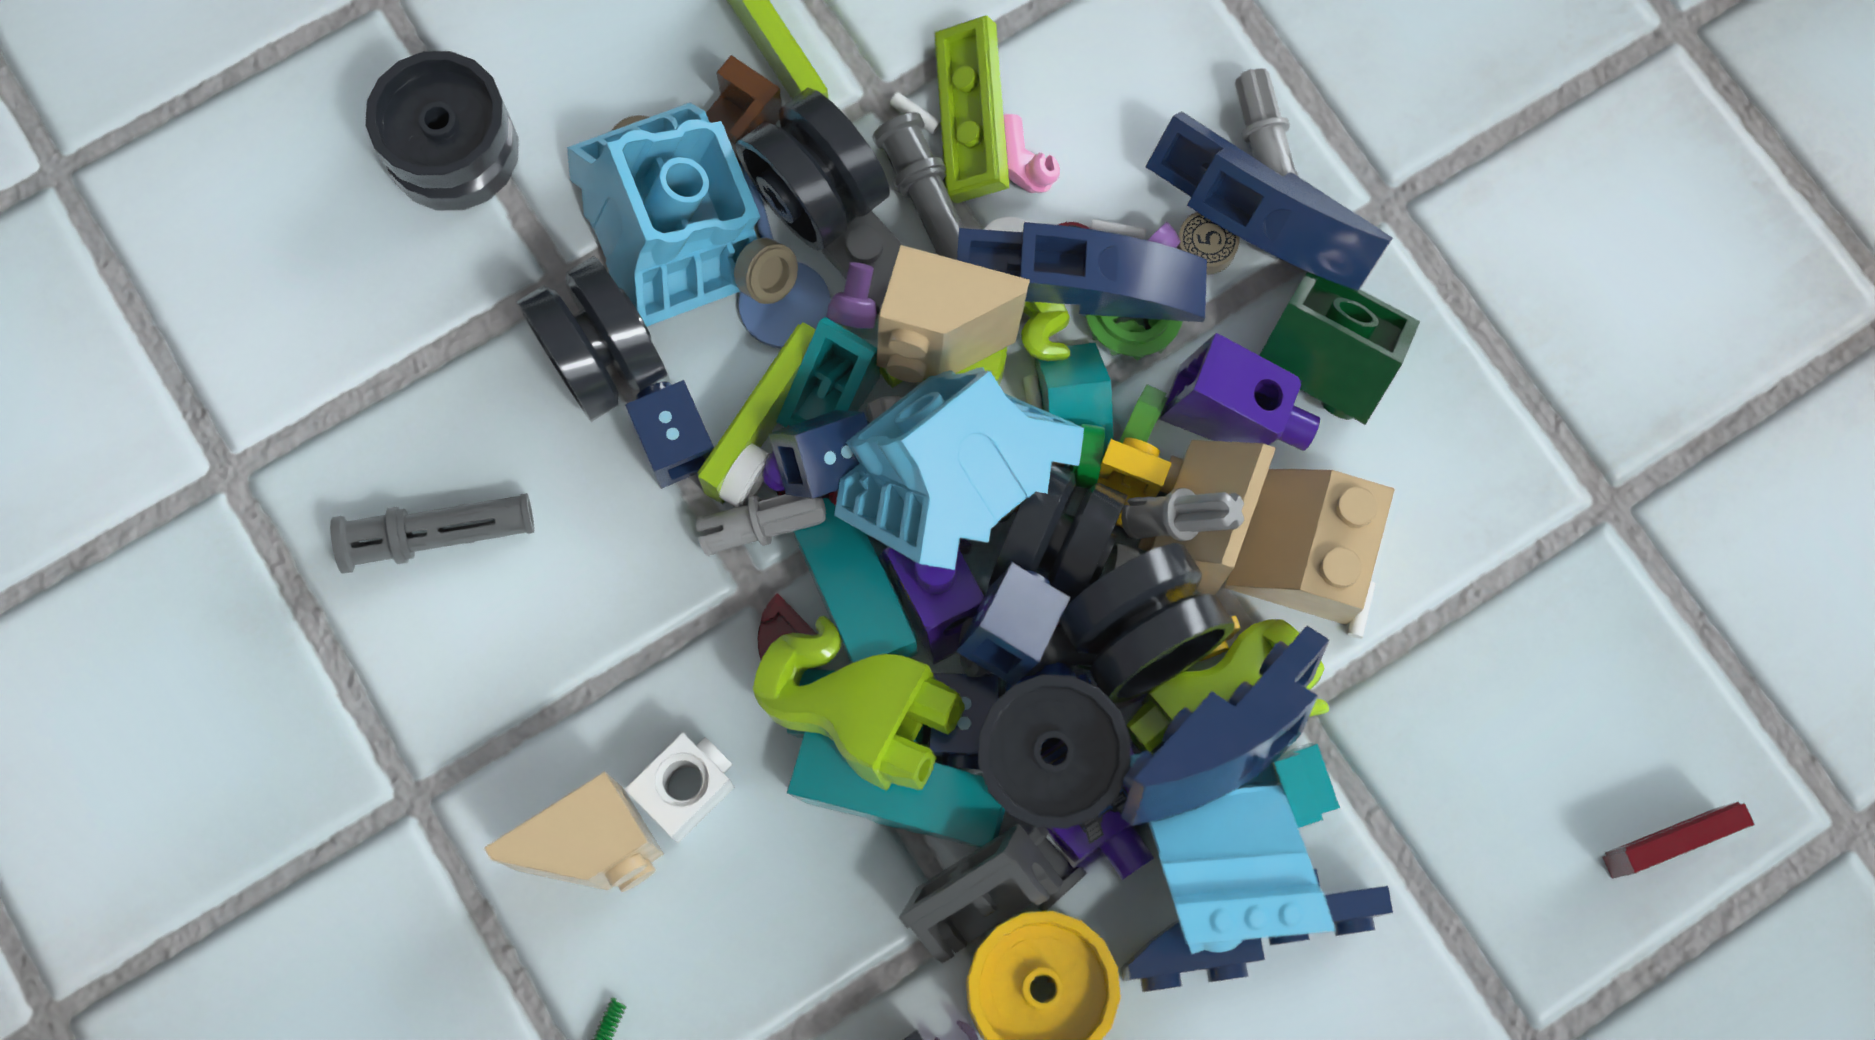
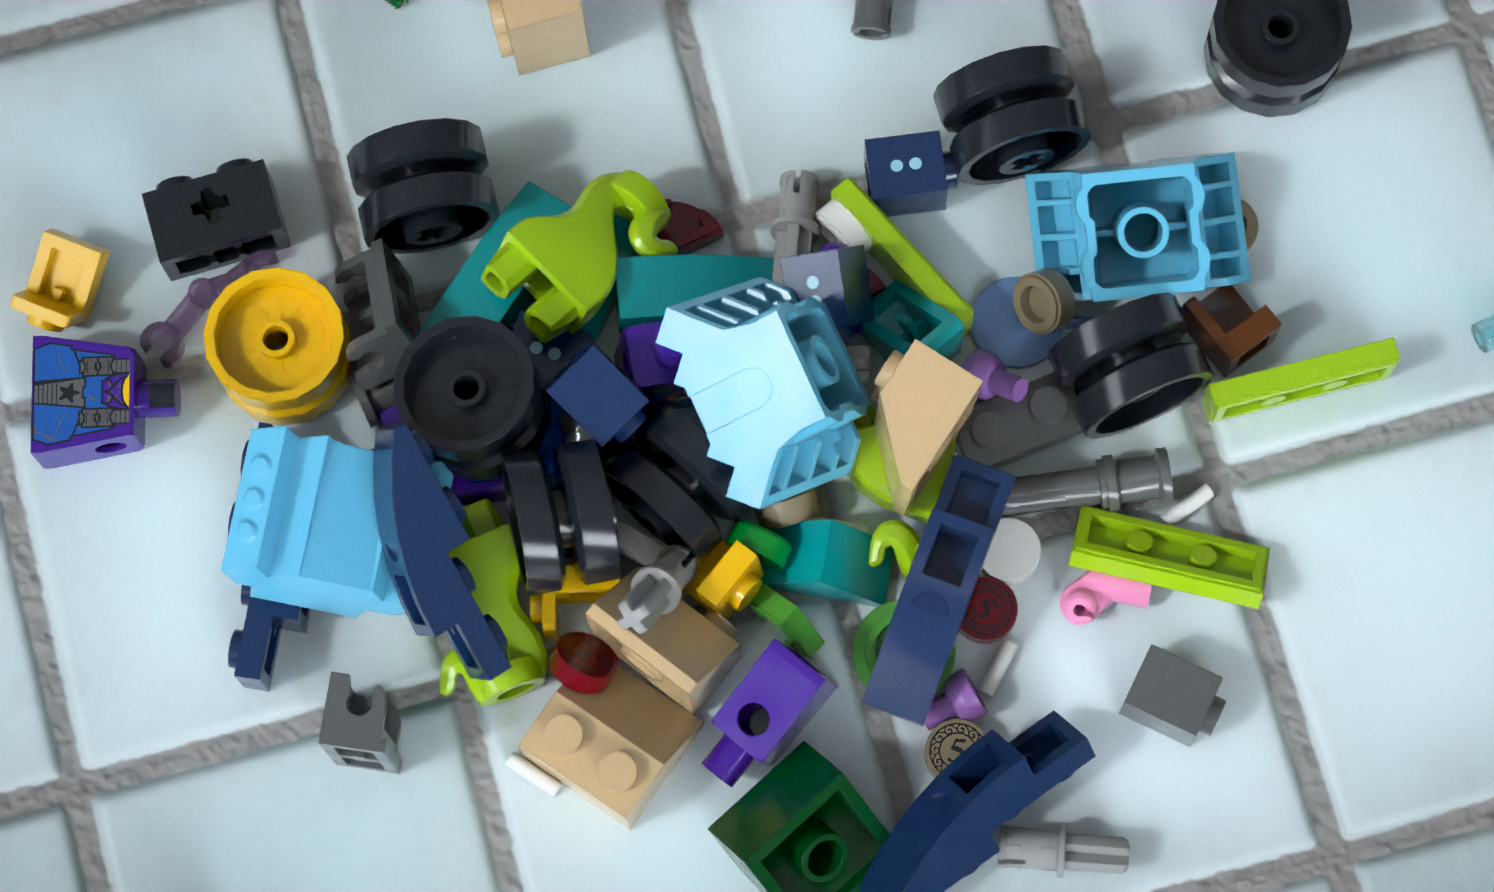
camera: 115 degrees right, 0 degrees up
(652, 785) = (561, 73): white brick -> none
(831, 892) = (423, 185): none -> black wheel
(1099, 73) = (1174, 697): none -> dark grey brick
(1258, 580) = (583, 662): none -> dark red tile
(1306, 783) = (376, 634): teal slope -> none
(1409, 765) = (355, 732): none -> dark grey hinge

